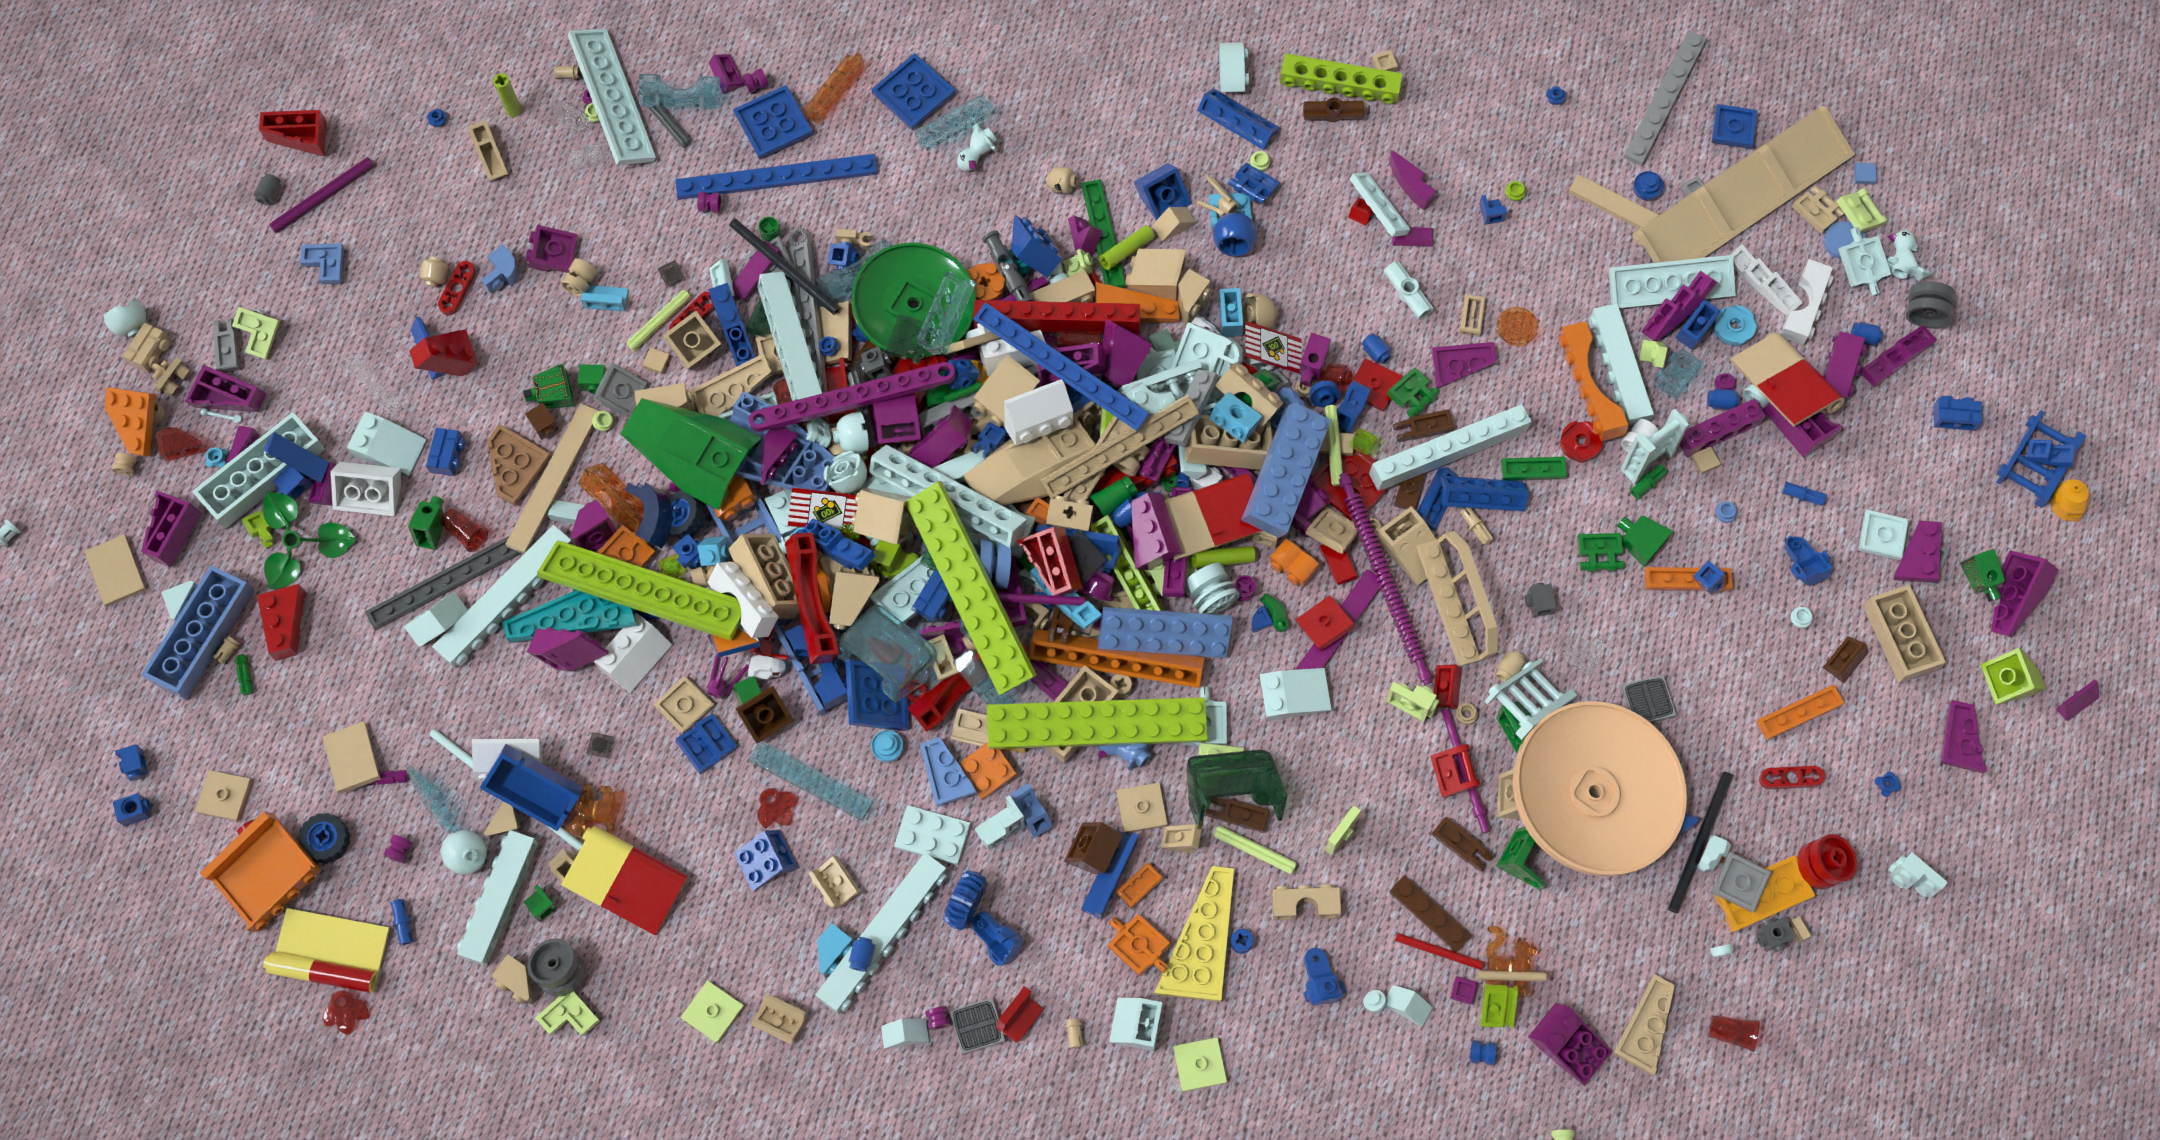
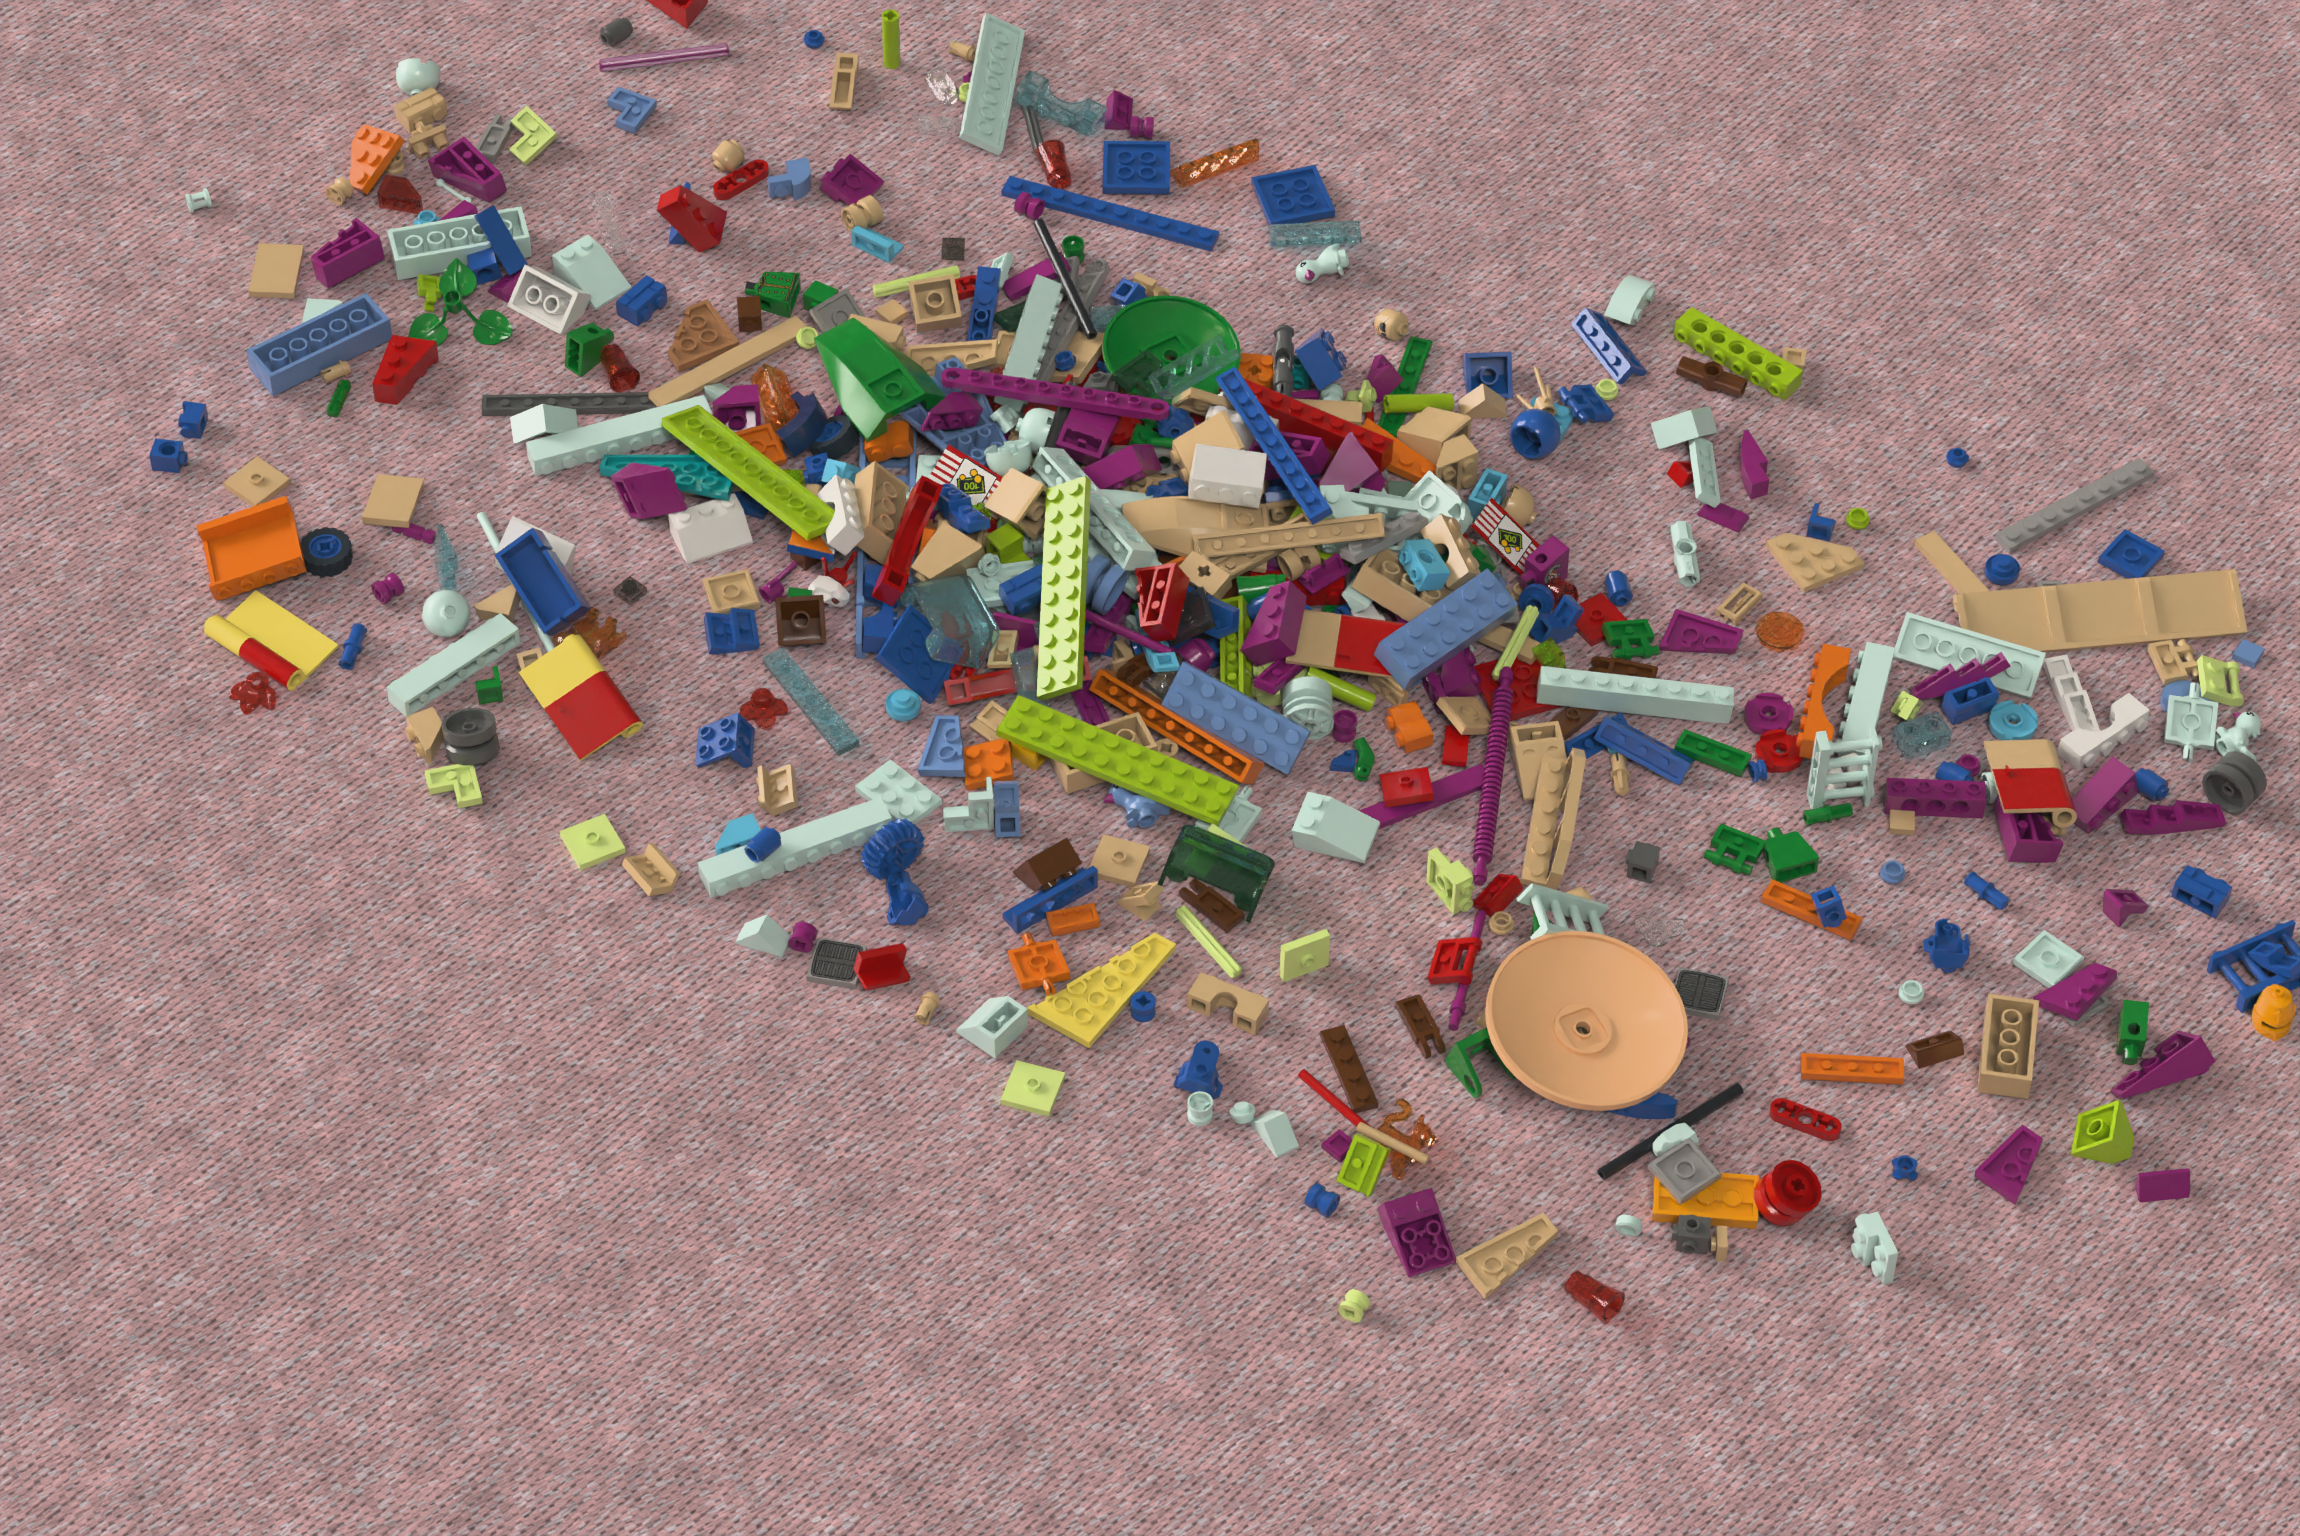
camera: 25 degrees right, 20 degrees down
(707, 152) = (1054, 163): none -> clear red plant
(888, 585) = (992, 568): none -> light aqua plate
(1341, 171) = (1684, 427): none -> light aqua panel
(1344, 1014) = (1200, 1108): none -> light aqua wheel
(1503, 246) = (1812, 560): none -> tan plate
(1551, 421) = (1756, 711): none -> magenta plate
(1576, 468) = (1757, 770): none -> blue bush
(1910, 456) = (2121, 903): none -> magenta slope

